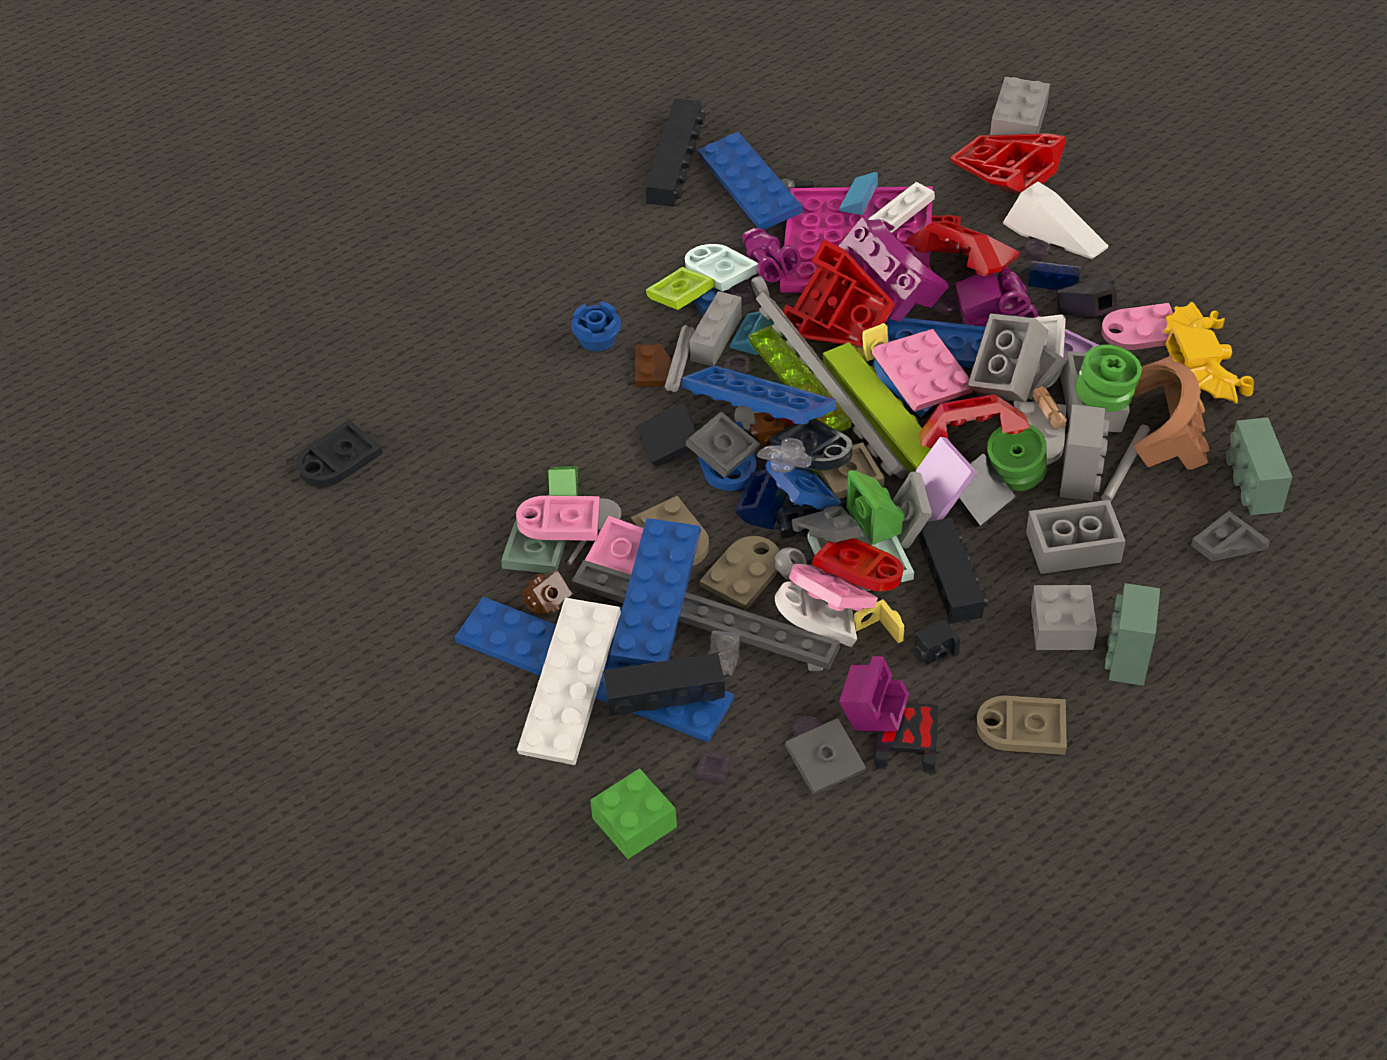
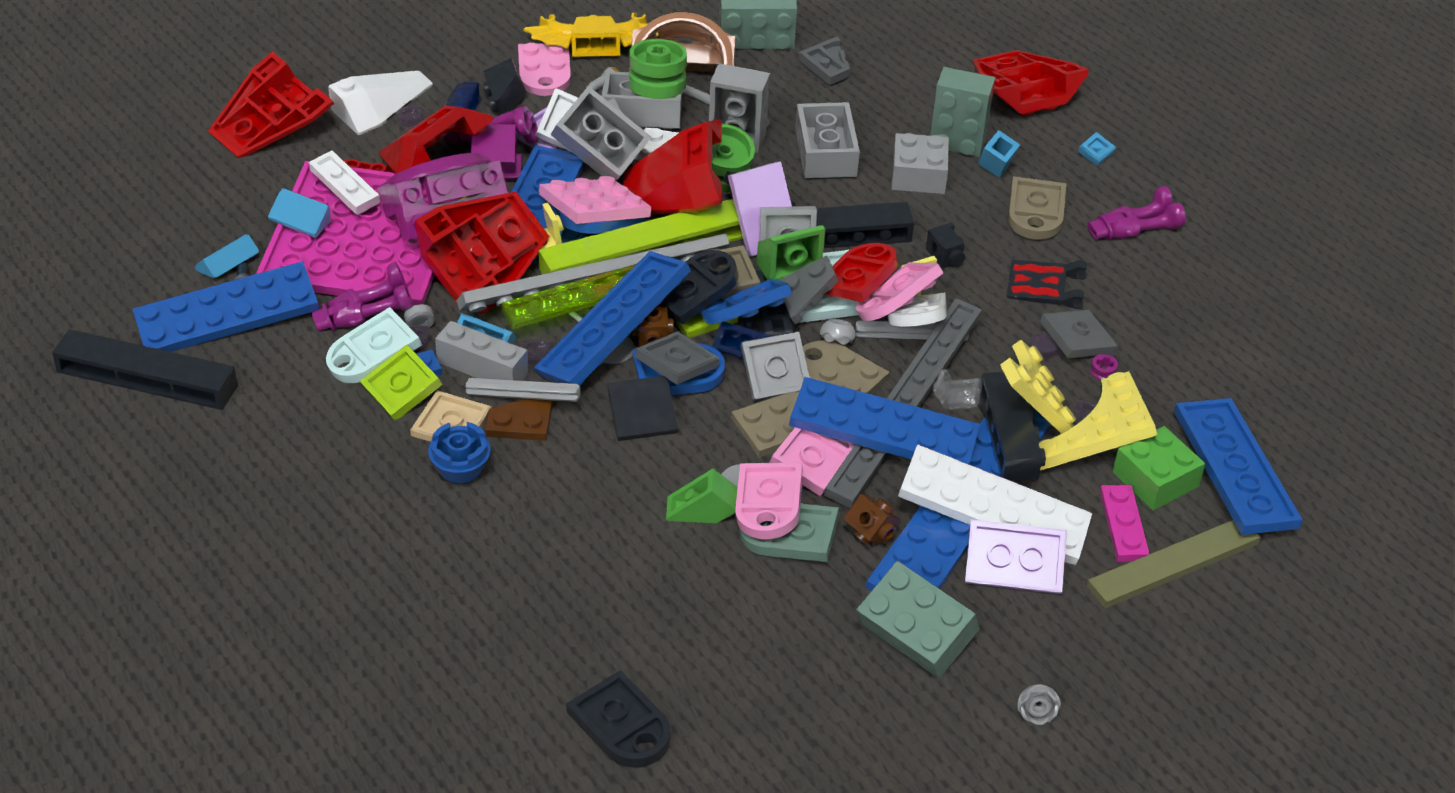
camera: 90 degrees left, 5 degrees down
(349, 714) = (1038, 713): none -> light grey plate
(427, 623) = (918, 619): none -> sand green brick
(510, 697) = (1015, 556): none -> tile
(523, 831) = (1170, 563): none -> olive tile
(566, 790) = (1124, 522): none -> dark pink plate
(645, 882) = (1237, 466): none -> blue plate
(647, 325) = (451, 409): none -> tan tile
(681, 772) = (1114, 422): none -> light yellow plate
(708, 712) = (1035, 386): none -> light yellow plate
(729, 516) = (774, 365): none -> light grey tile
(786, 456) = (729, 292): clear plate -> none
(790, 784) = (1103, 360): none -> magenta bush
(814, 172) = (227, 257): none -> dark azure slope
(872, 698) = (1022, 285): magenta plate -> none
(1016, 802) = (1128, 222): none -> magenta piece
(1020, 107) = (189, 89): light grey brick -> none
(1049, 408) = (663, 129): light nougat axle -> none
(1093, 682) = (998, 154): none -> dark azure brick
(1146, 783) = (1097, 149): none -> dark azure tile
(1245, 706) = (1031, 80): none -> red wedge

